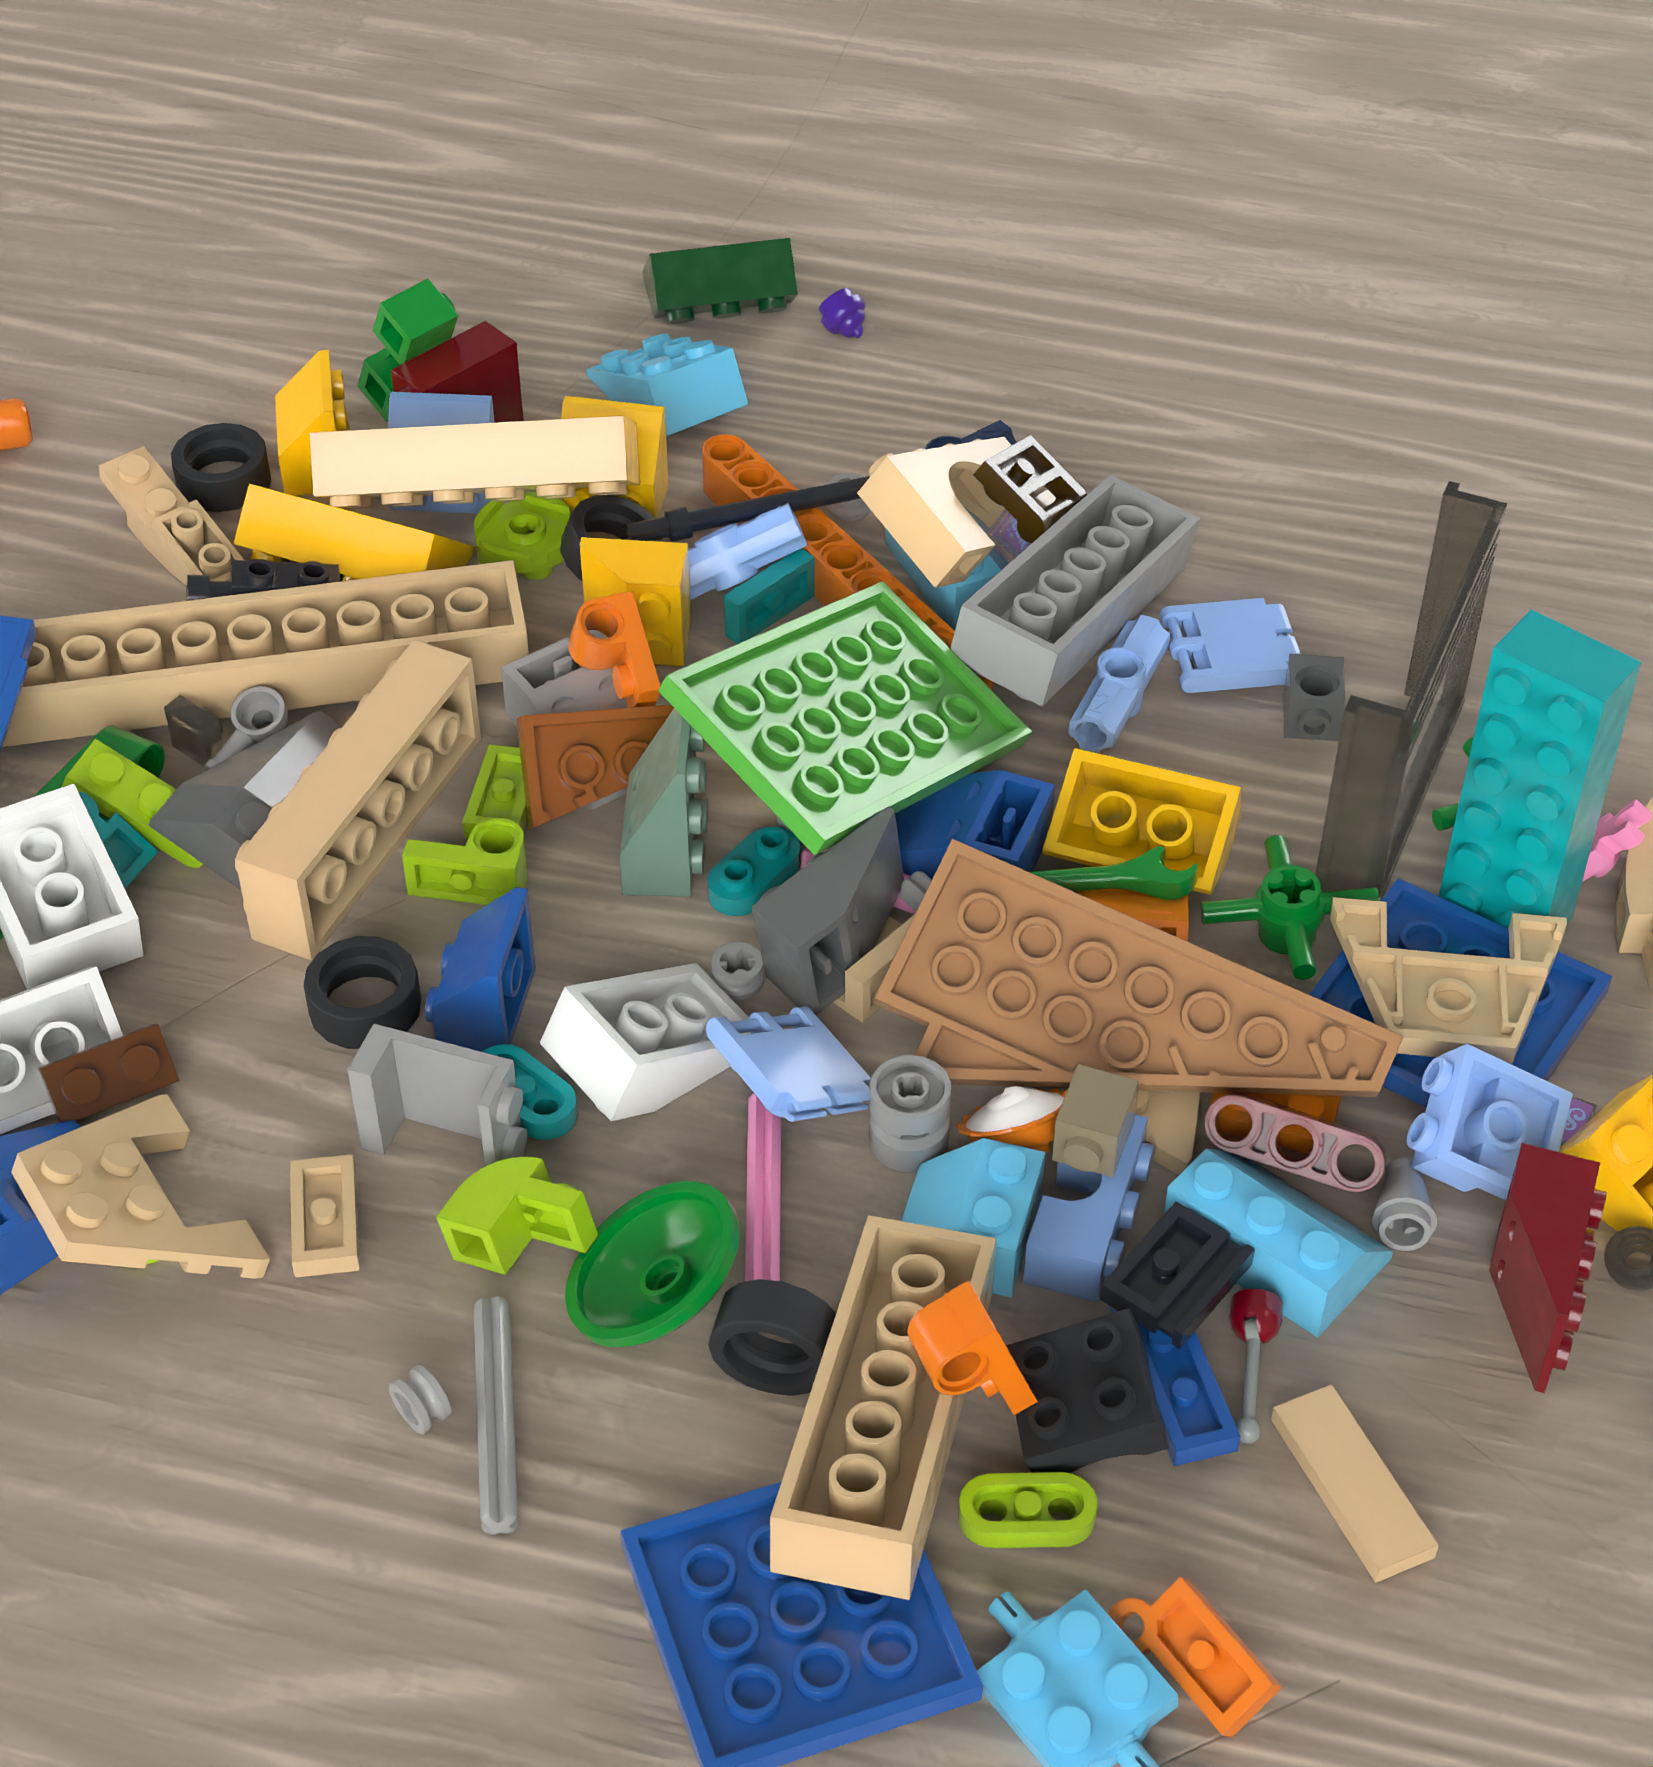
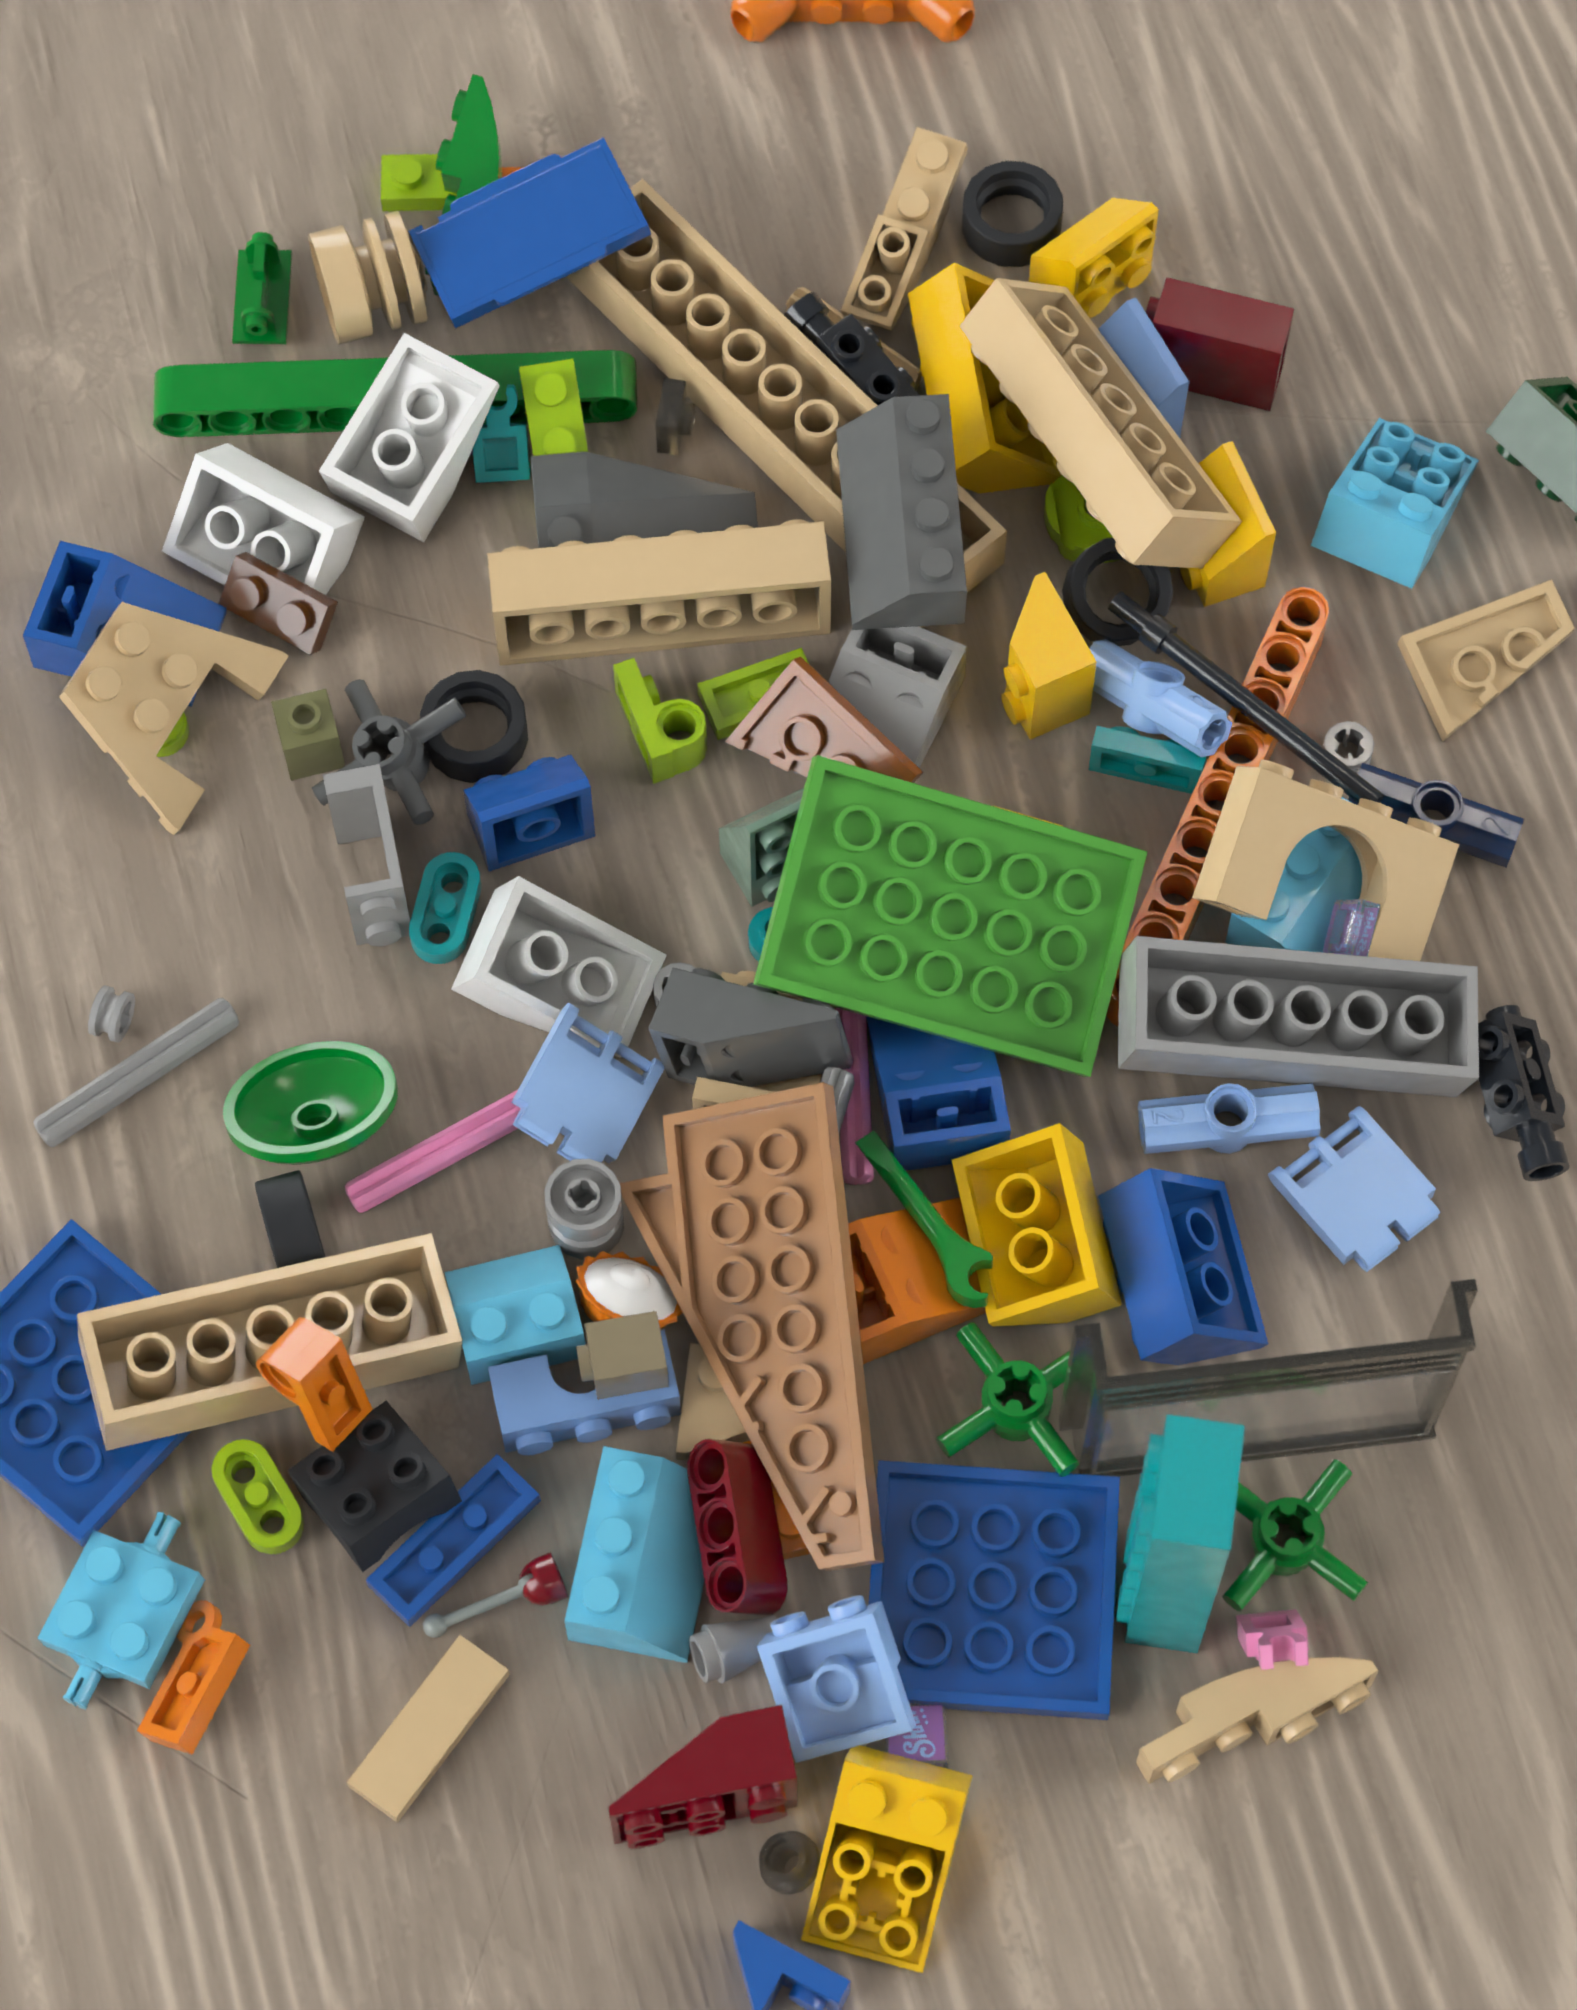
camera: 60 degrees right, 20 degrees up
(248, 714) = (702, 454): light grey bar -> none
(265, 1107) = (308, 734): none -> olive brick
(324, 1216) = (239, 841): tan plate -> none
(325, 1035) = (390, 735): none -> dark grey bar
(406, 327) = (1228, 261): green arch -> none
(452, 592) = (902, 515): none -> dark grey slope
(507, 1206) = (311, 966): lime brick -> none
(623, 650) = (914, 716): orange plate -> none
(831, 396) = (1482, 652): none -> tan wing
(1022, 474) = (1384, 890): dark brown plate -> none
(1177, 1274) = (524, 1497): black plate -> none
(1246, 526) = (1516, 1089): none -> black brick
(1270, 773) = (1181, 1268): none -> blue slope
(1314, 697) = (1340, 1280): dark grey brick -> none
(1448, 997) = (970, 1587): tan wing -> none

